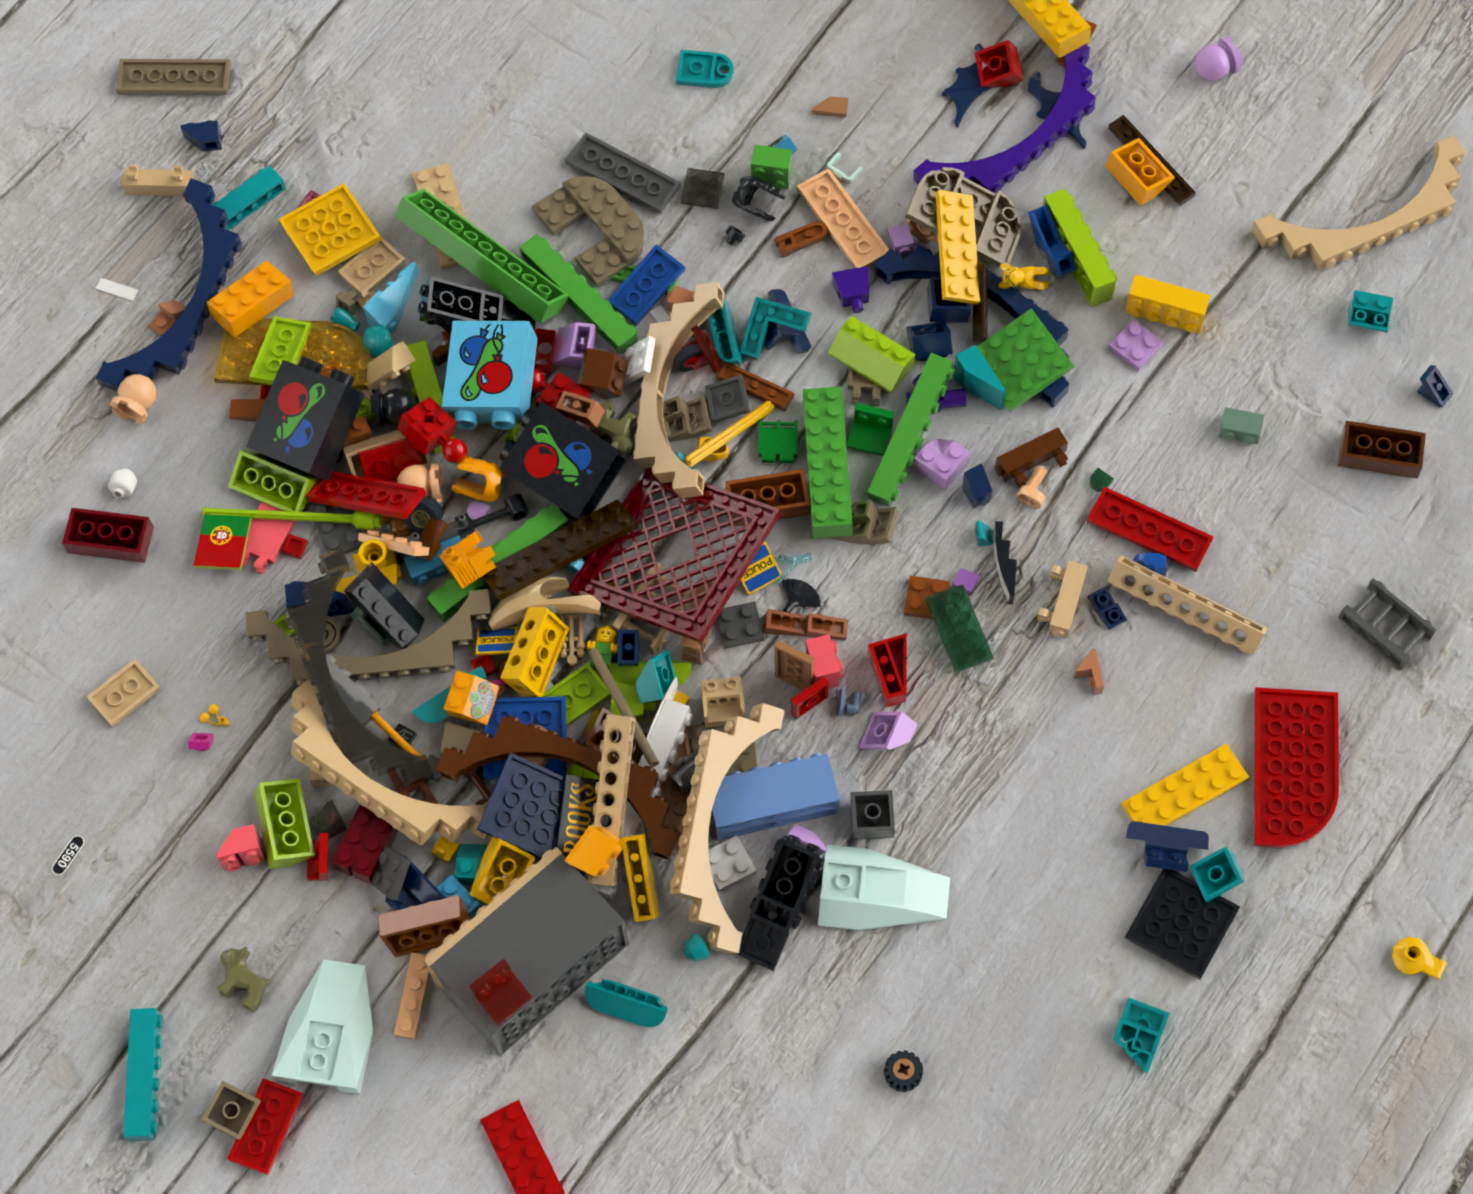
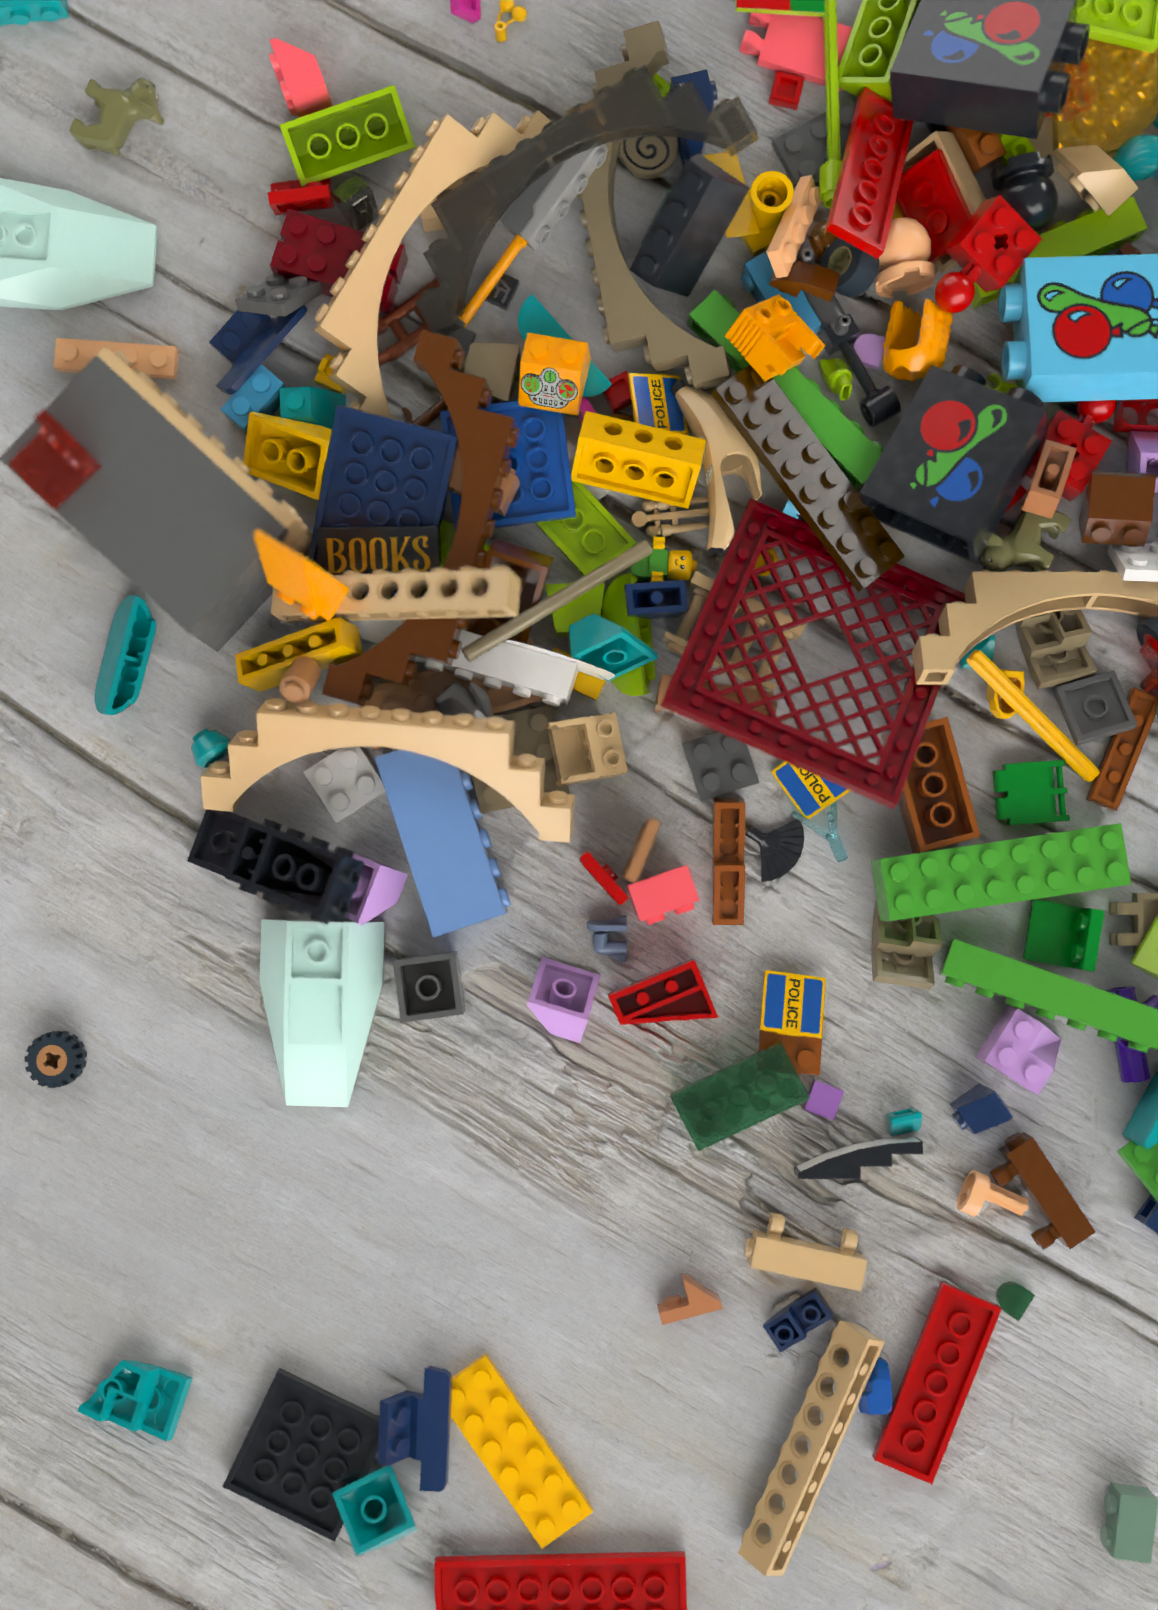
camera: 80 degrees right, 20 degrees up
(422, 925) = (202, 353): dark orange slope -> none
(493, 531) = (837, 377): none -> lime piece
(660, 866) = (300, 679): none -> medium nougat brick
(902, 591) = (793, 1004): none -> piece

